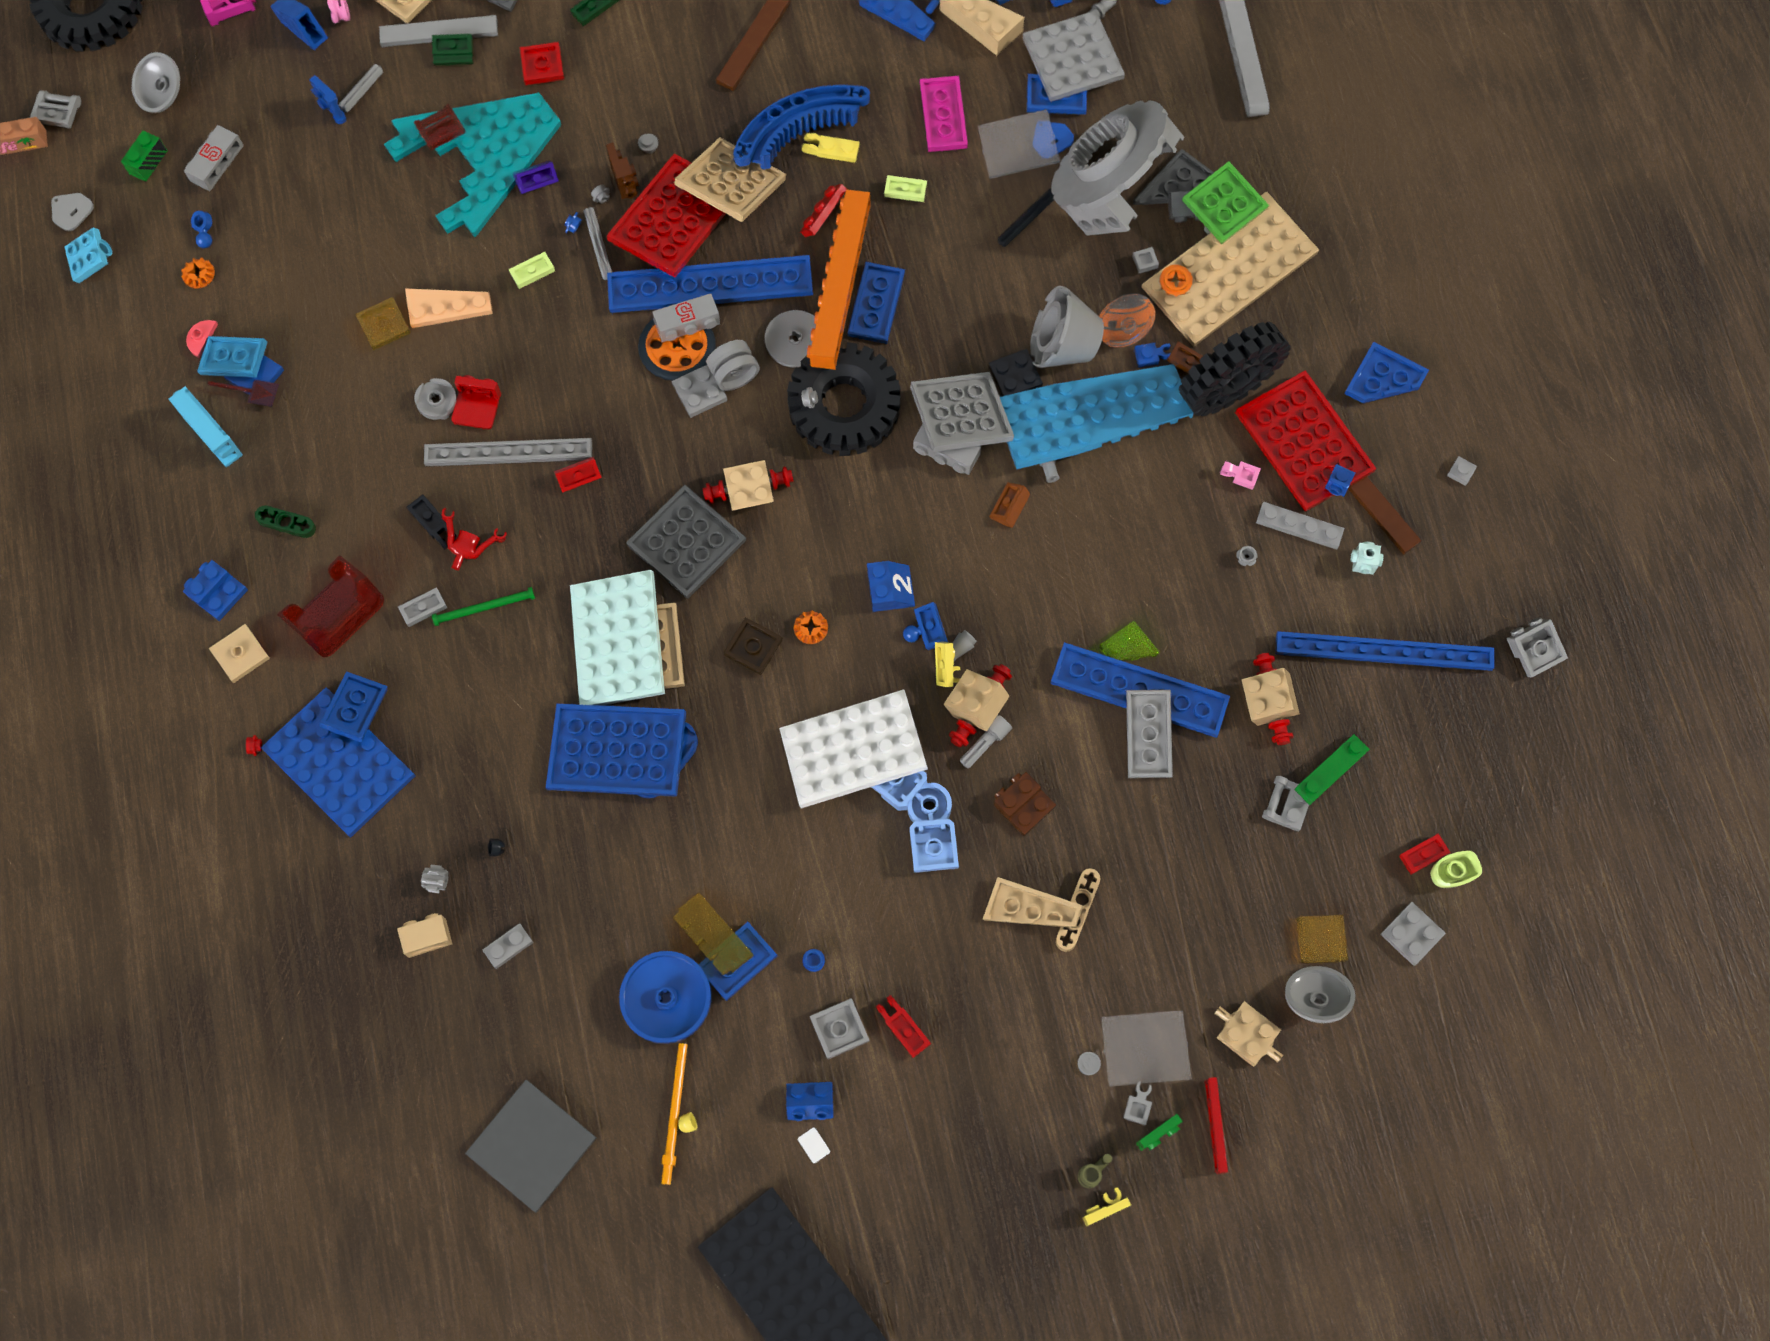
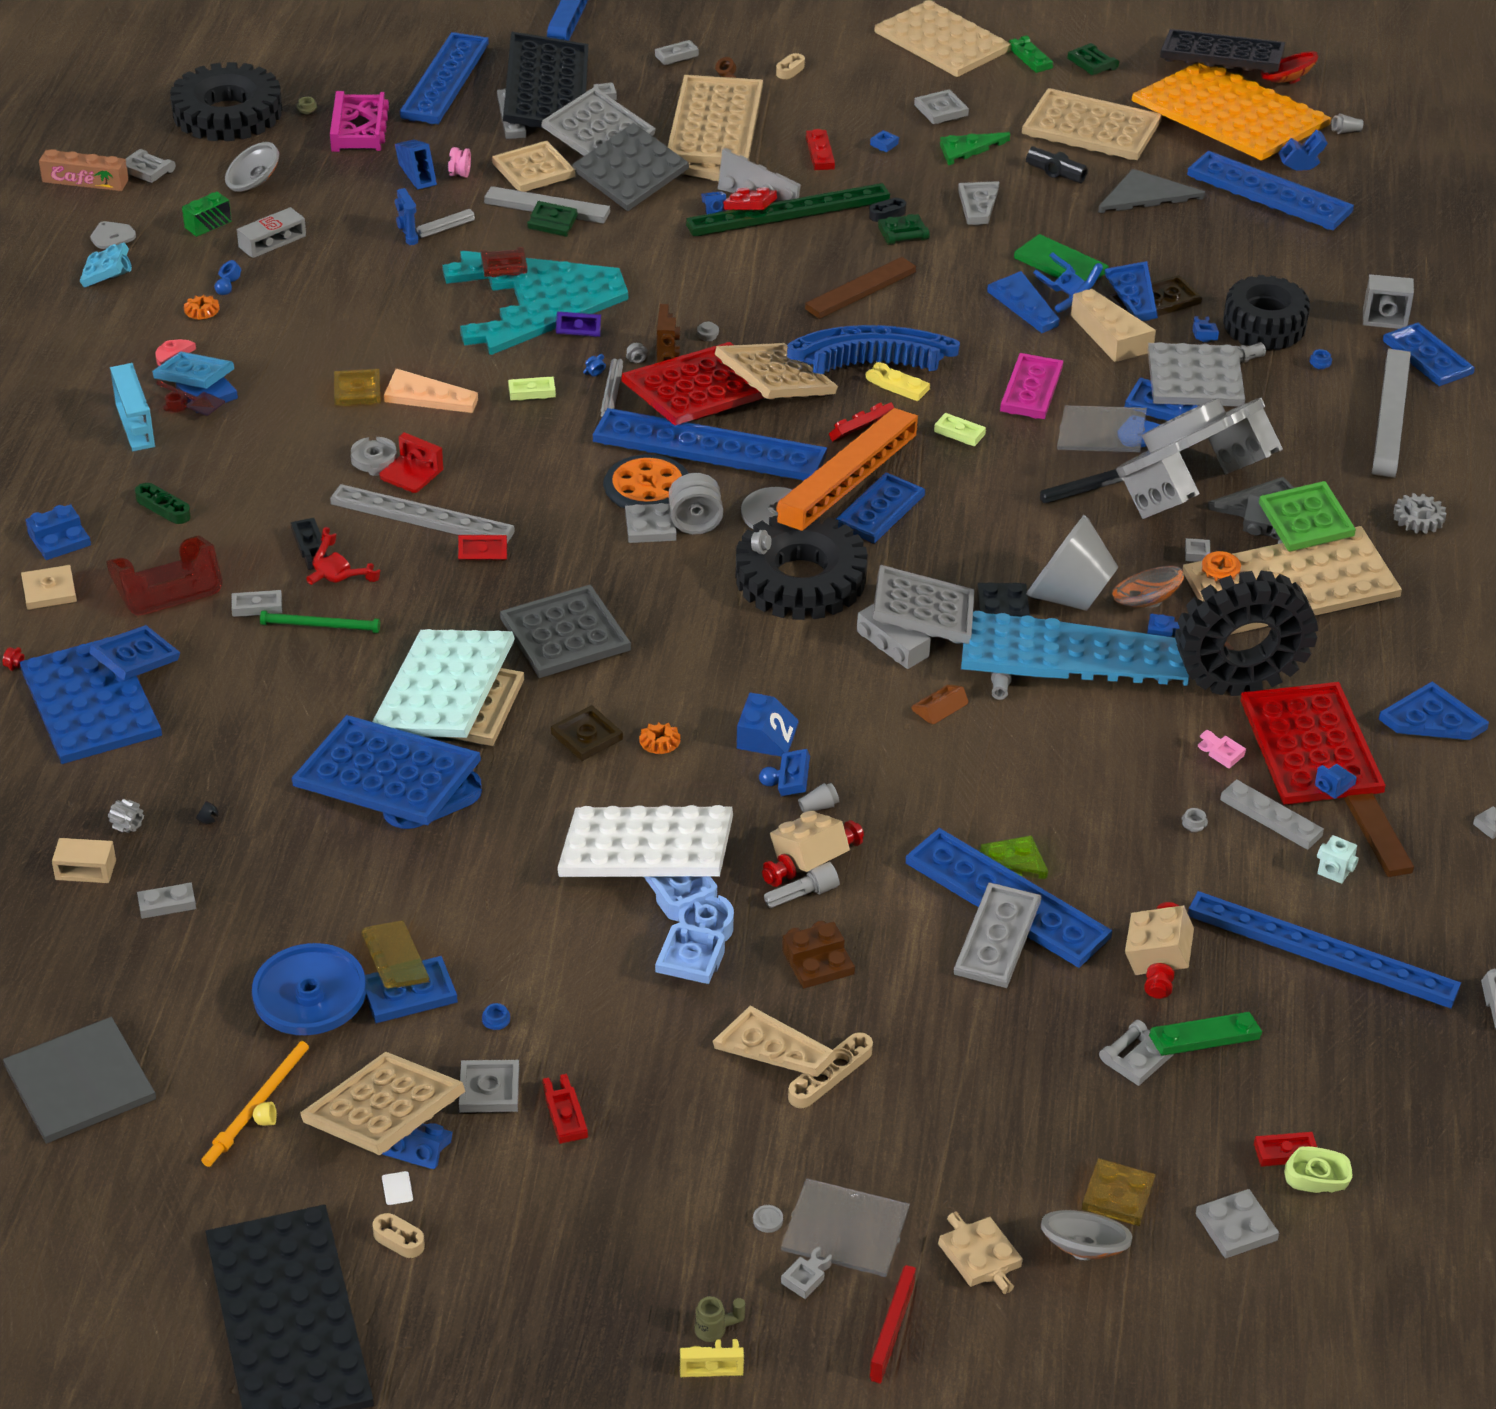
camera: 20 degrees right, 30 degrees down
(233, 394) = (175, 402): none -> clear red plate
(541, 63) = (634, 249): red plate -> none
(686, 318) = (667, 457): light grey brick -> none
(748, 485) = (657, 600): tan brick -> none
(774, 1086) = (382, 1103): none -> tan plate
(835, 1196) = (400, 1232): none -> tan beam
(944, 664) = (794, 793): light yellow plate -> none
(1152, 1139) = (817, 1302): green plate -> none
(1302, 153) = (1419, 513): none -> light grey gear

